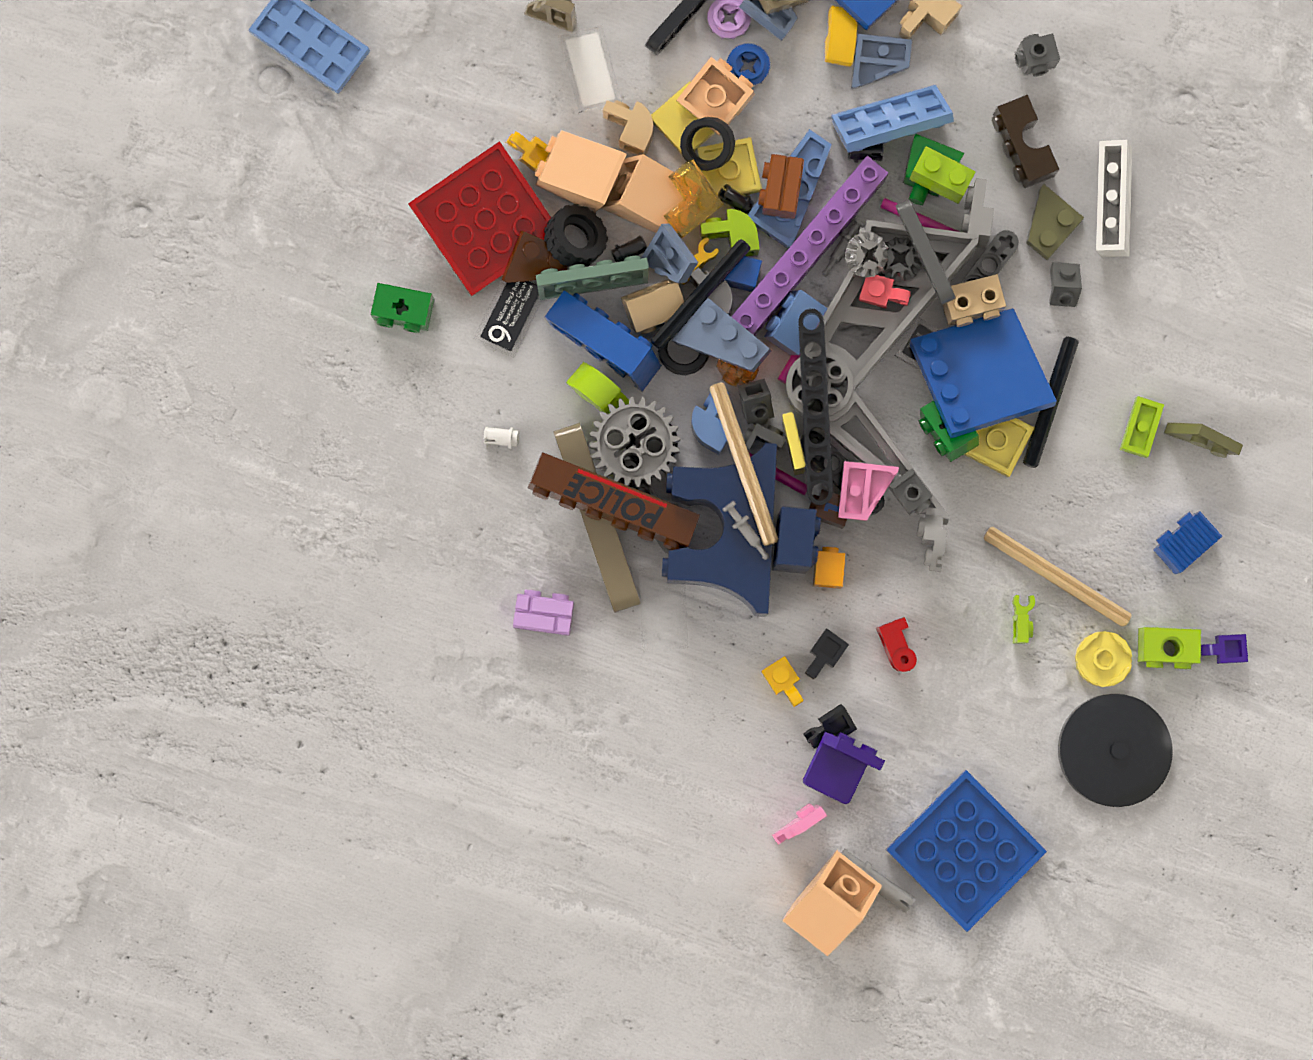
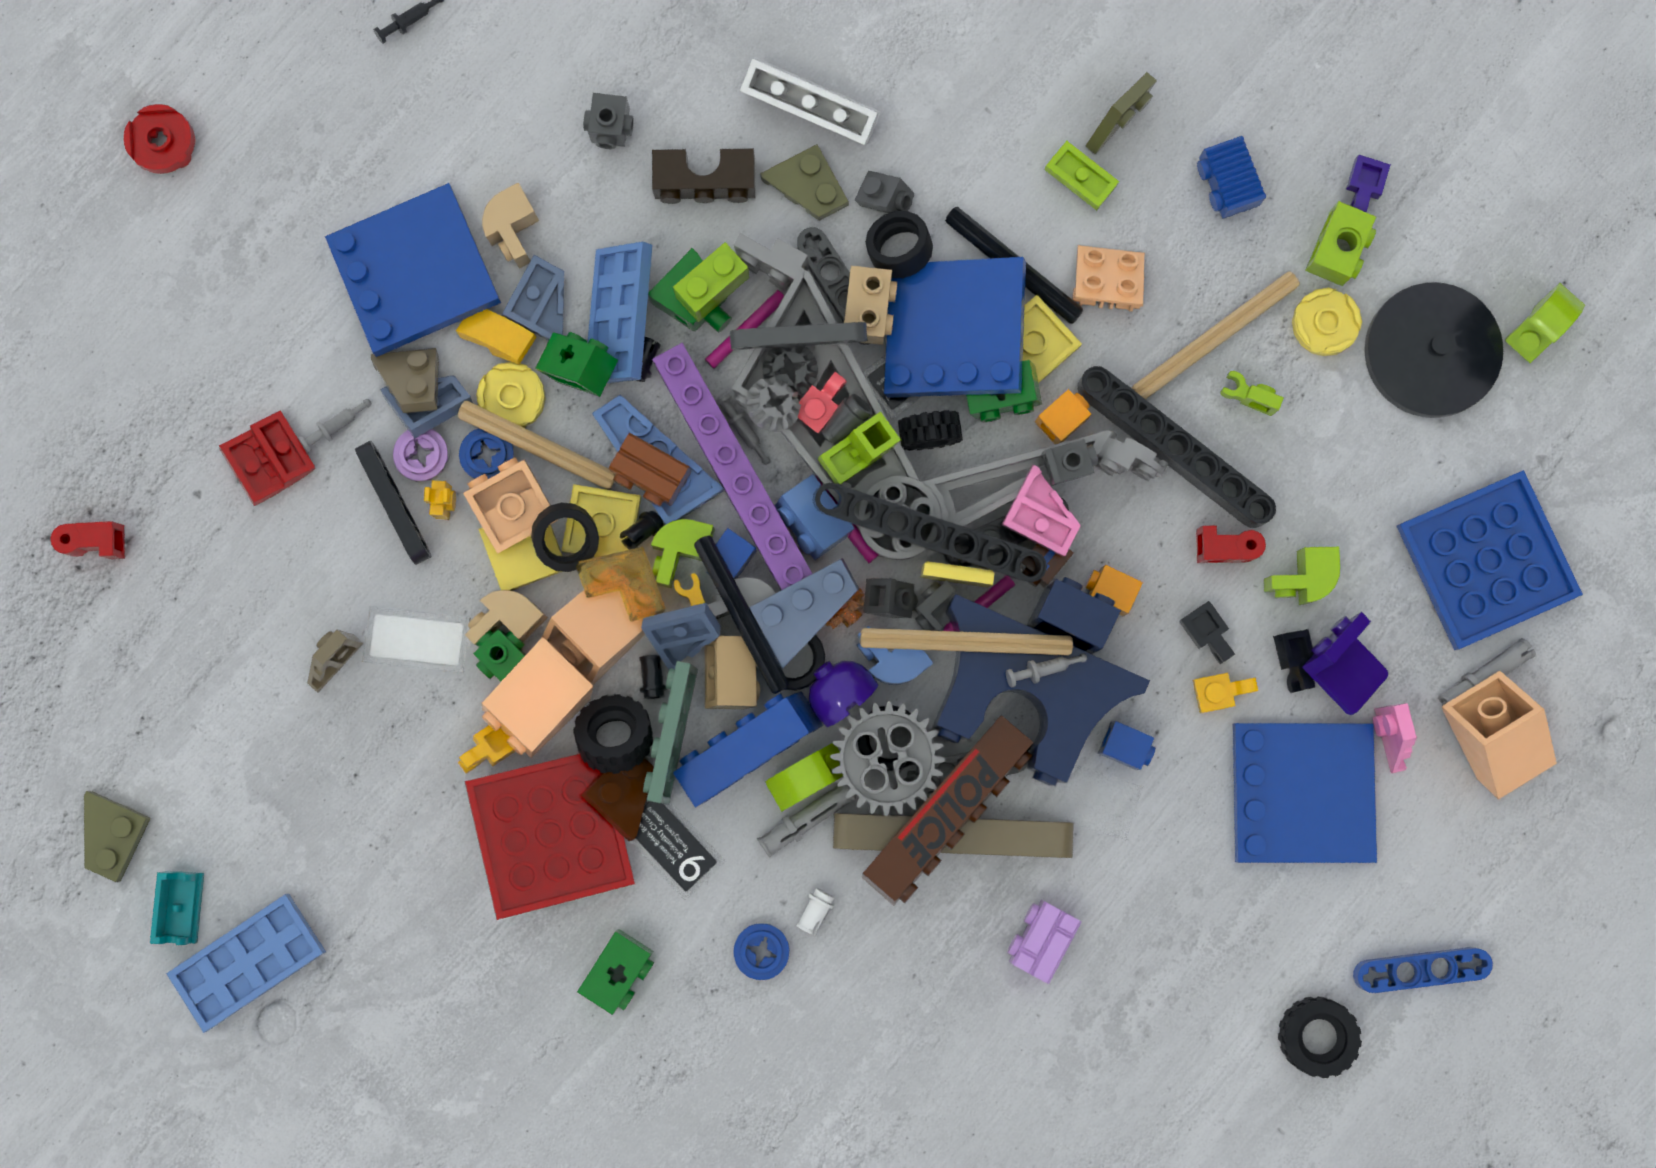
camera: 70 degrees left, 0 degrees up
(447, 399) = (746, 958): none -> blue gear
(529, 855) = (1346, 1044): none -> black tyre
(557, 397) = (804, 820): none -> light grey pin
(603, 129) = (488, 650): none -> green brick
(627, 912) = (1422, 969): none -> blue beam
(672, 388) = (839, 690): none -> dark purple cylinder
(700, 44) = (441, 499): none -> yellow plate
(714, 623) = (1127, 746): none -> blue brick
(731, 772) = (1304, 793): none -> blue plate
(769, 96) = (536, 444): none -> tan axle
(799, 66) = (512, 393): none -> light yellow tile
(842, 102) = (577, 363): none -> green brick
(858, 334) = (859, 449): none -> lime brick
(878, 315) = (846, 418): none -> dark grey cone
(895, 383) = (930, 430): none -> black tyre
(901, 720) = (1316, 575): none -> lime brick
(947, 482) = (1063, 416): none -> light orange brick
(967, 566) = (1192, 448): none -> black beam
(1039, 293) = (893, 224): none -> black tyre
(1070, 477) = (1109, 278): none -> light nougat hinge
(1171, 828) = (1546, 323): none -> lime brick

